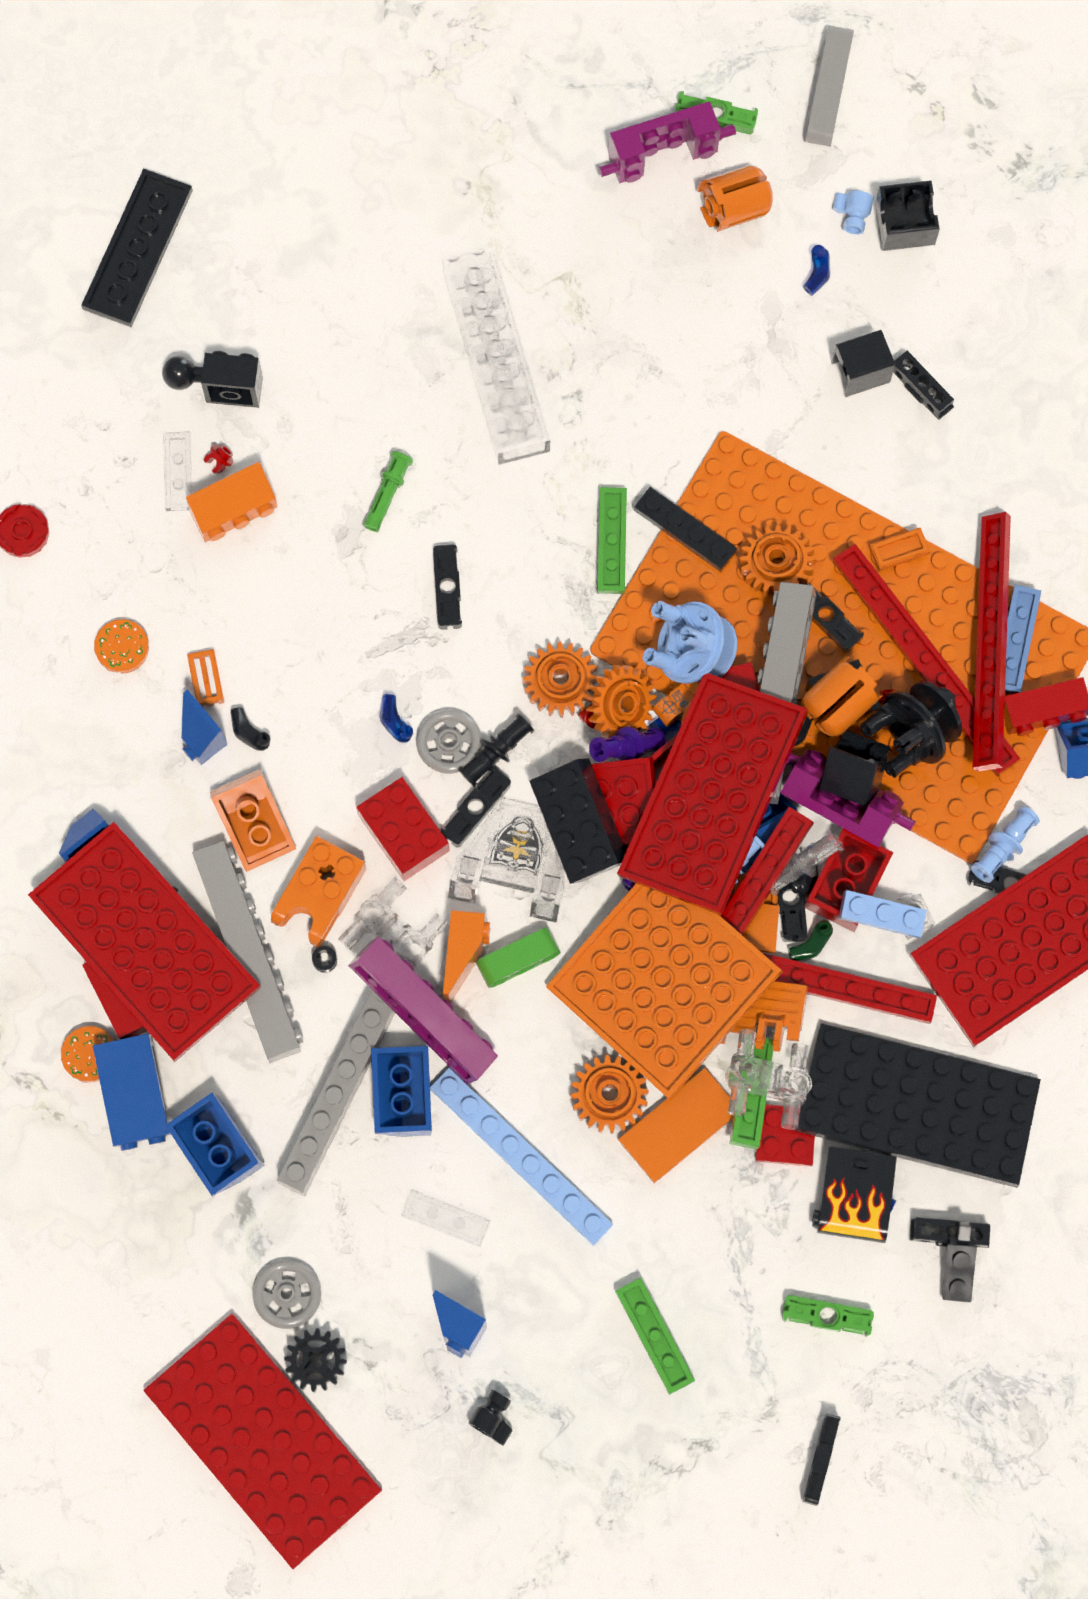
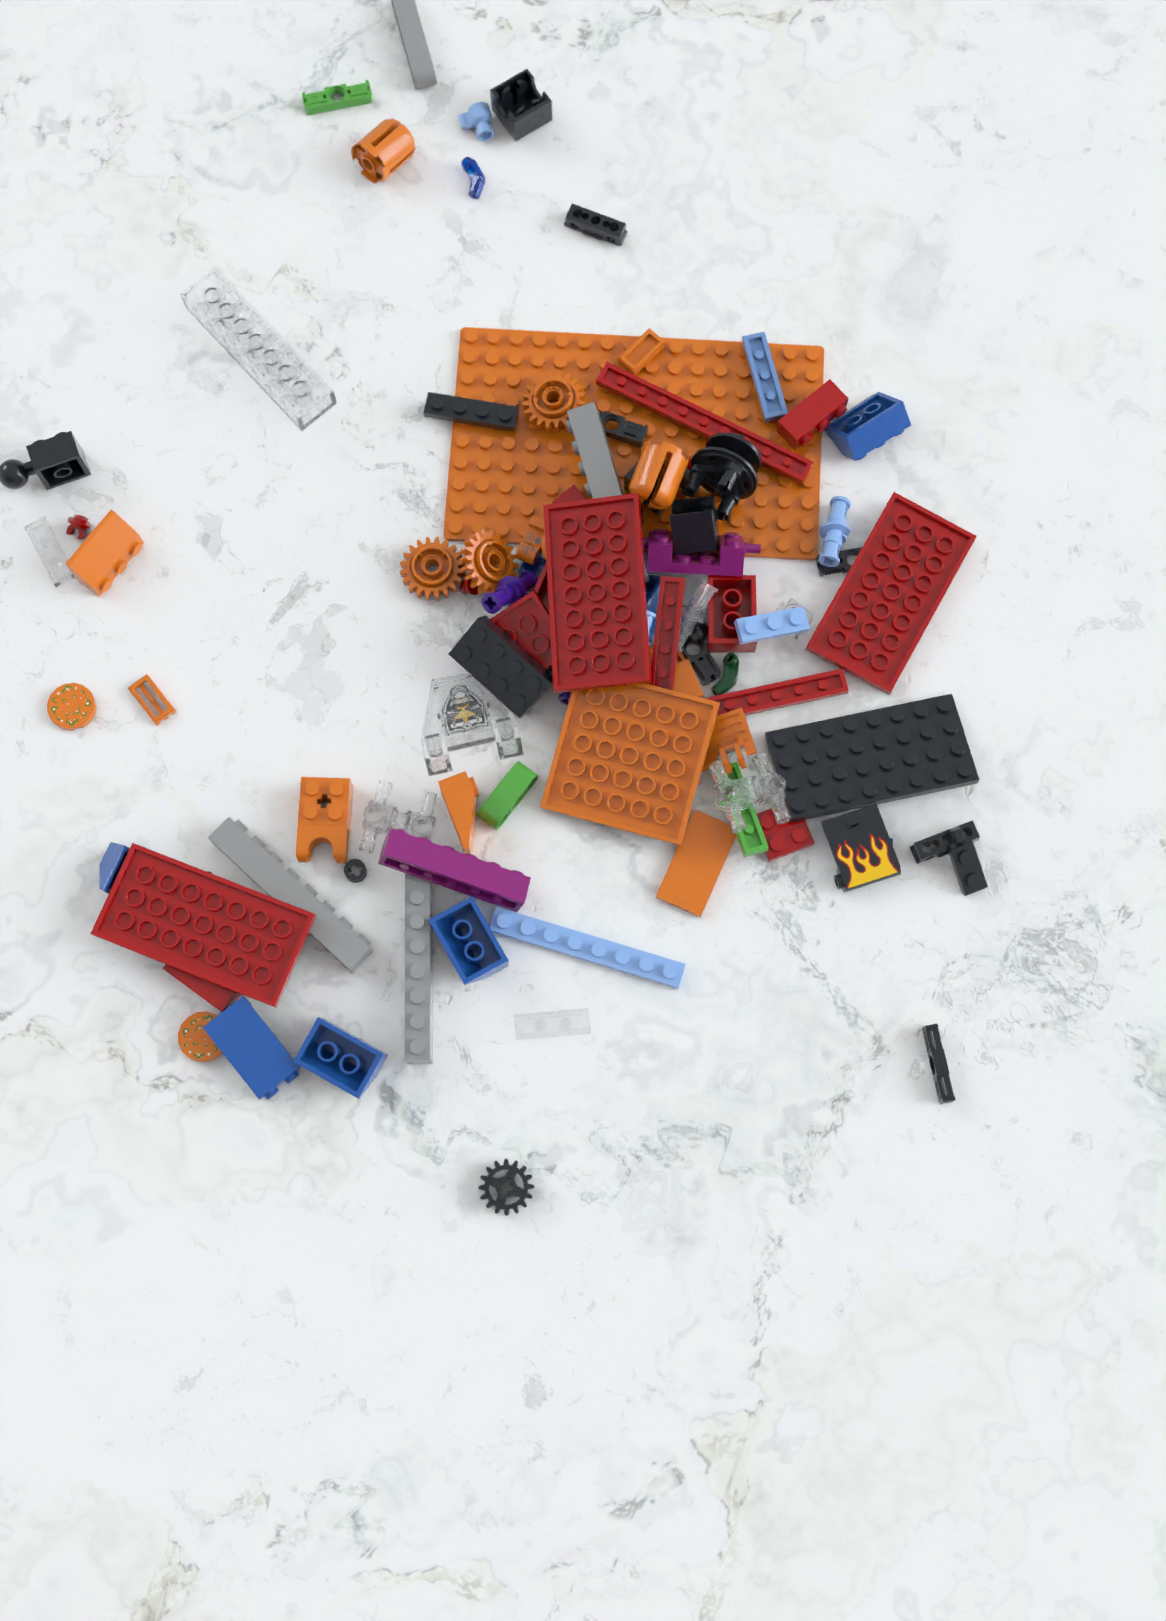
camera: 25 degrees left, 0 degrees up
(199, 731) = (168, 741): blue slope -> none
(246, 732) = (204, 725): black arm -> none
(252, 820) = (244, 790): orange slope -> none
(262, 1441) = (495, 1273): red plate -> none
(308, 1303) = (463, 1167): light grey plate -> none
(391, 480) = (224, 481): bright green pin -> none
(391, 720) = (316, 662): clear blue arm -> none
(403, 829) = (366, 740): red brick -> none
(446, 570) = (300, 529): black piece -> none
(451, 719) = (362, 639): light grey plate -> none
(459, 1325) = (606, 1101): blue slope -> none
(488, 793) = (413, 712): black piece -> none
(488, 1419) = (665, 1163): black piece -> none
(495, 750) = (409, 645): black piece -> none
(609, 1112) = (631, 880): orange gear -> none
(612, 540) = (419, 447): bright green plate -> none
(655, 1336) = (762, 1033): bright green plate -> none
(691, 125) = (324, 111): magenta brick -> none
(692, 642) = (521, 488): light blue piece -> none
(847, 1317) = (869, 955): bright green piece -> none
(865, 362) = (544, 225): black piece -> none
(991, 642) = (748, 386): red plate -> none

